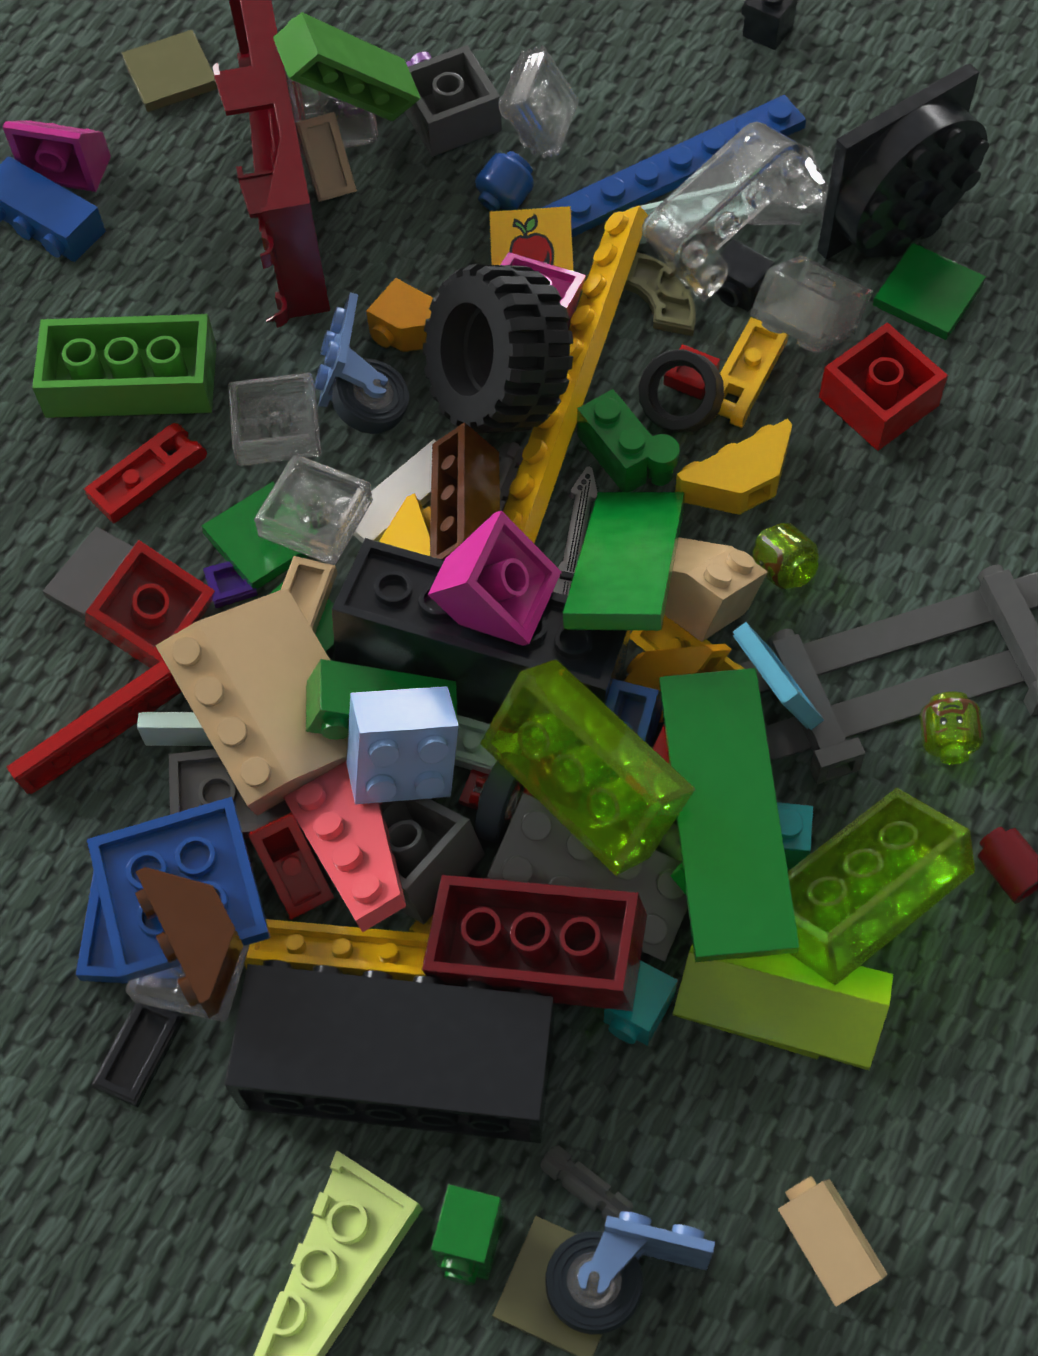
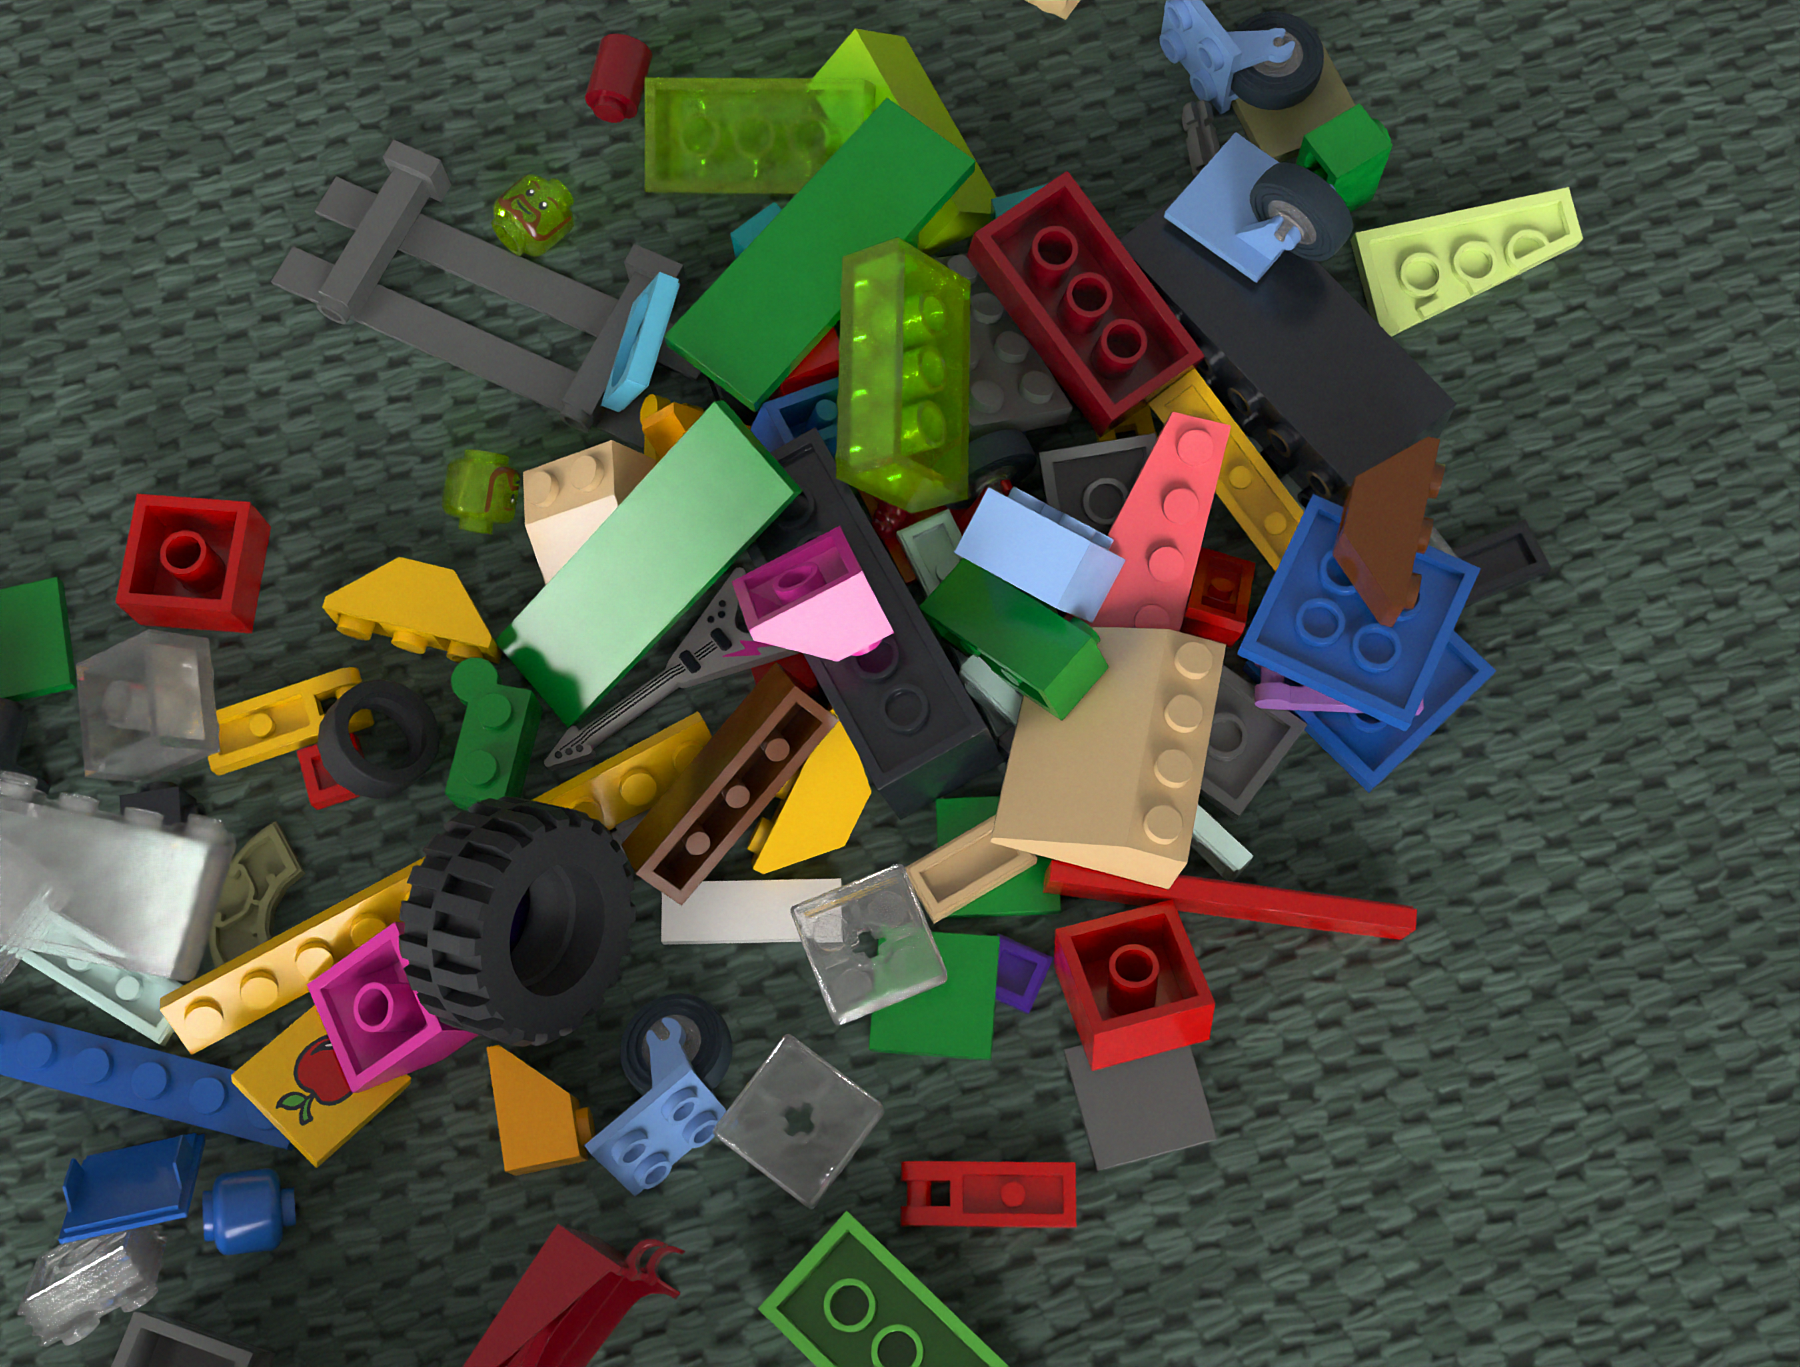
camera: 135 degrees left, 10 degrees up
(471, 1089) = (1256, 208): none -> plate
(566, 143) = (131, 1187): none -> blue piece

